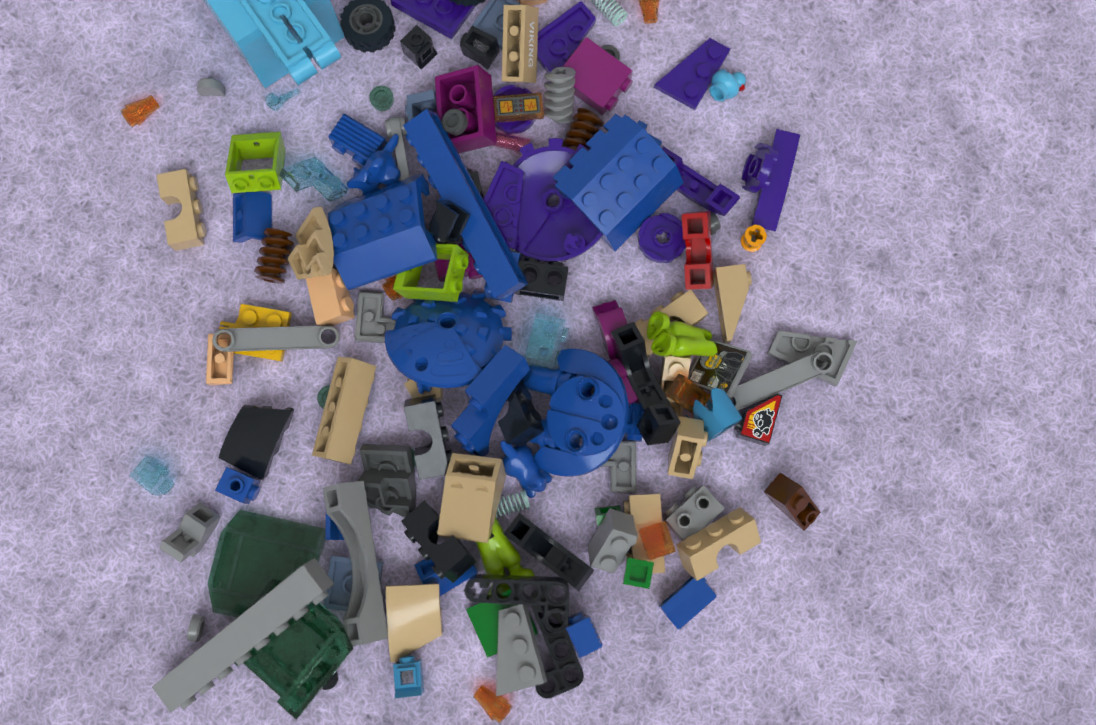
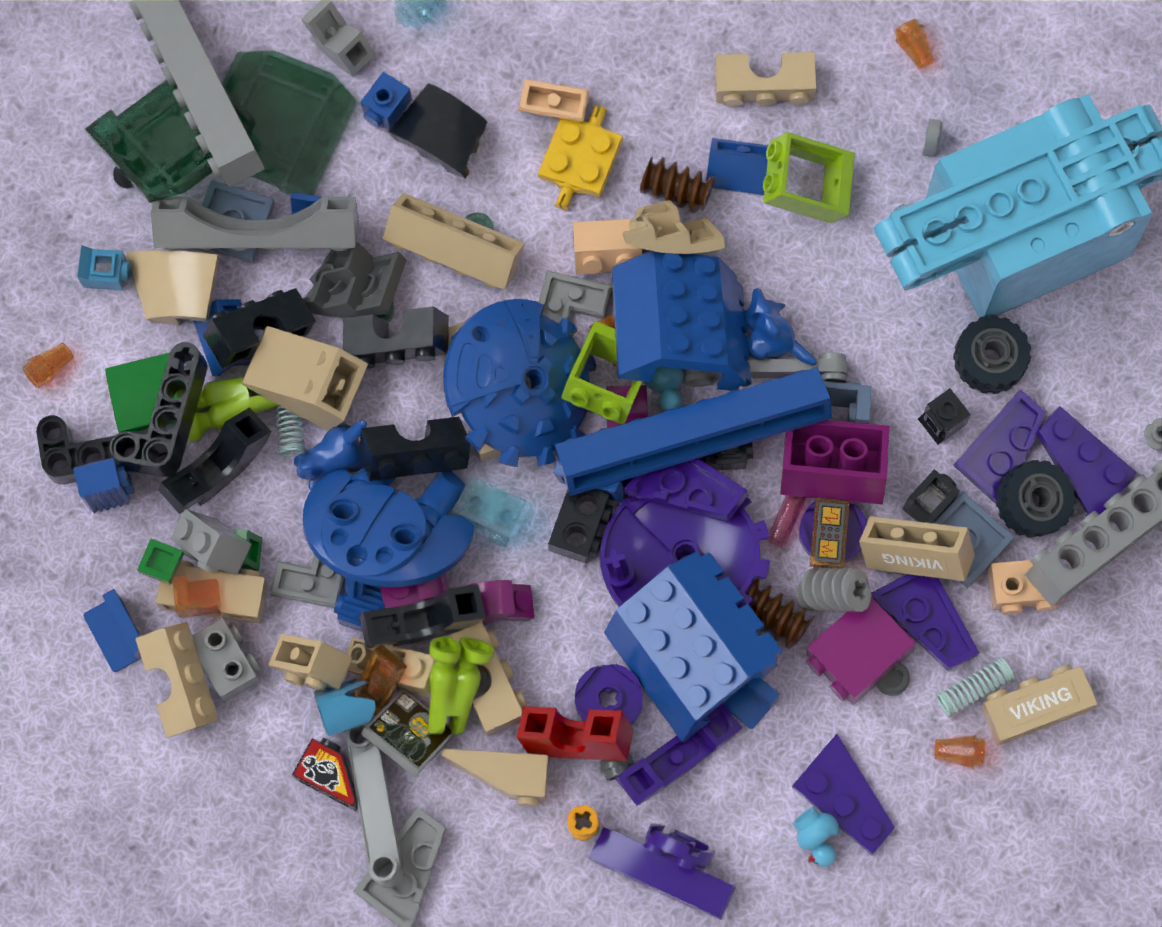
camera: 105 degrees right, 5 degrees down
(195, 628) = (222, 29): light grey tile -> none
(275, 338) = (564, 171): light grey piece -> none
(315, 174) = (783, 249): clear light blue plate -> none
(355, 139) = (821, 314): blue brick -> none
(381, 98) = (881, 358): clear green tile -> none
(448, 221) = (667, 399): black window -> none
(454, 122) = (812, 437): dark grey tile -> none
(486, 399) = (423, 412): blue arch -> none
(518, 652) = (100, 401): light grey wing -> none
(658, 424) = (345, 625): black brick -> none
(792, 501) = (211, 794): reddish brown slope -> none

